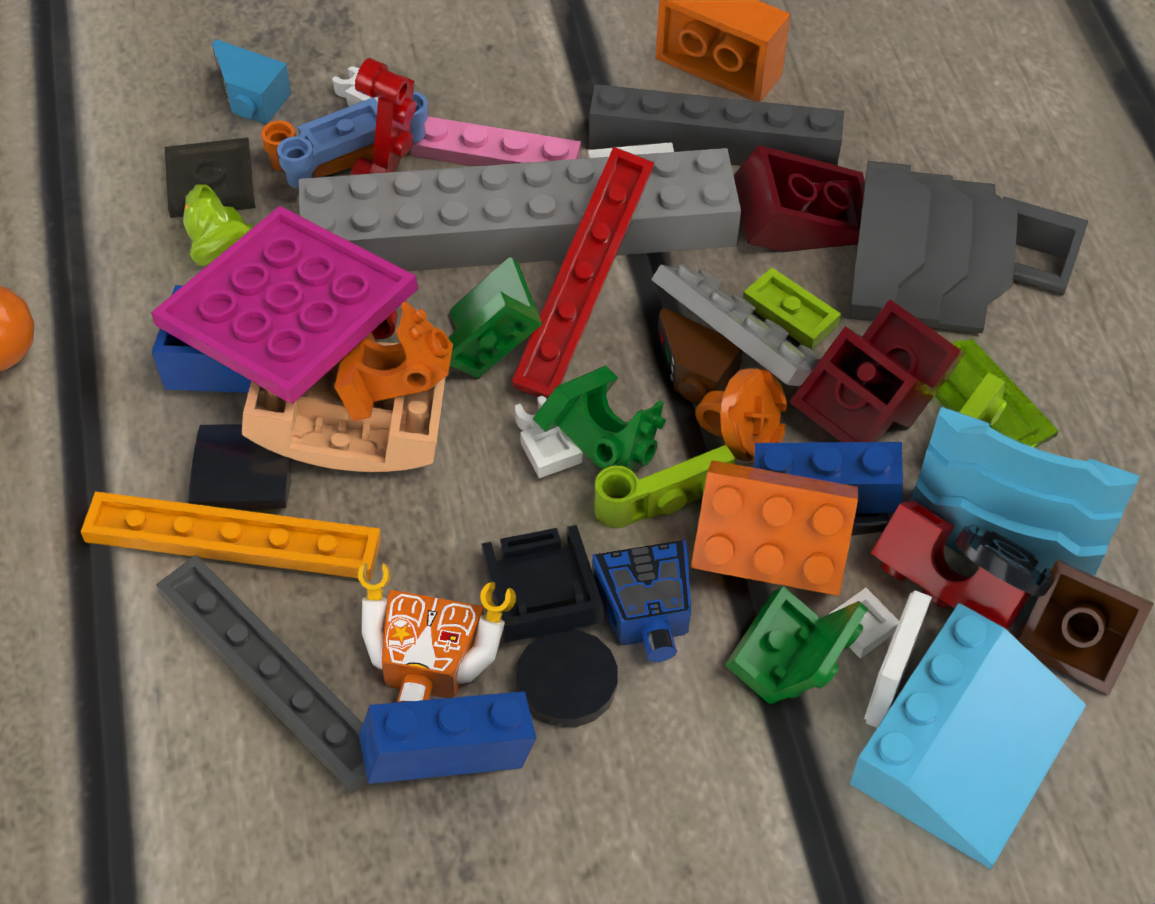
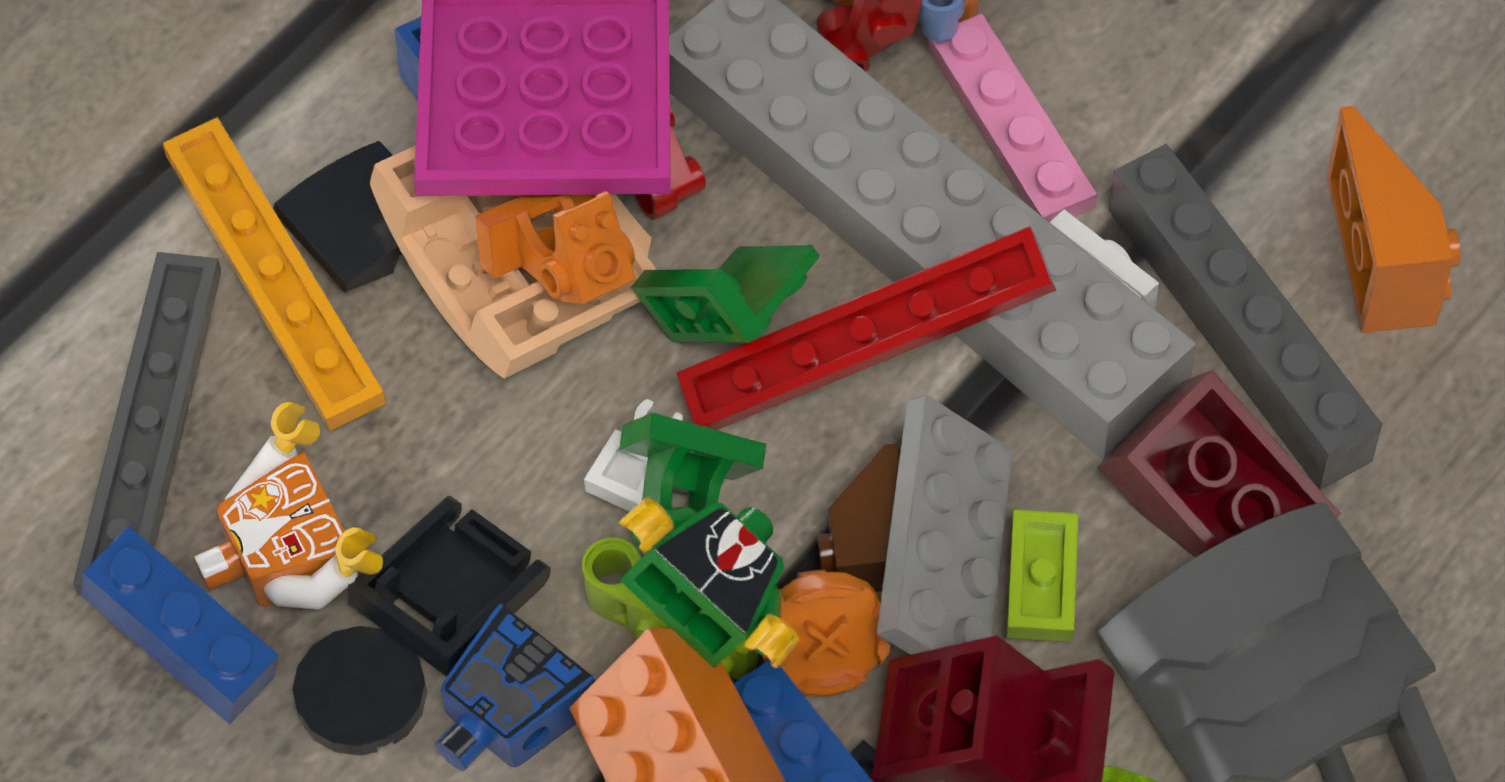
camera: 55 degrees right, 5 degrees up
(706, 426) = (711, 578): none -> torso

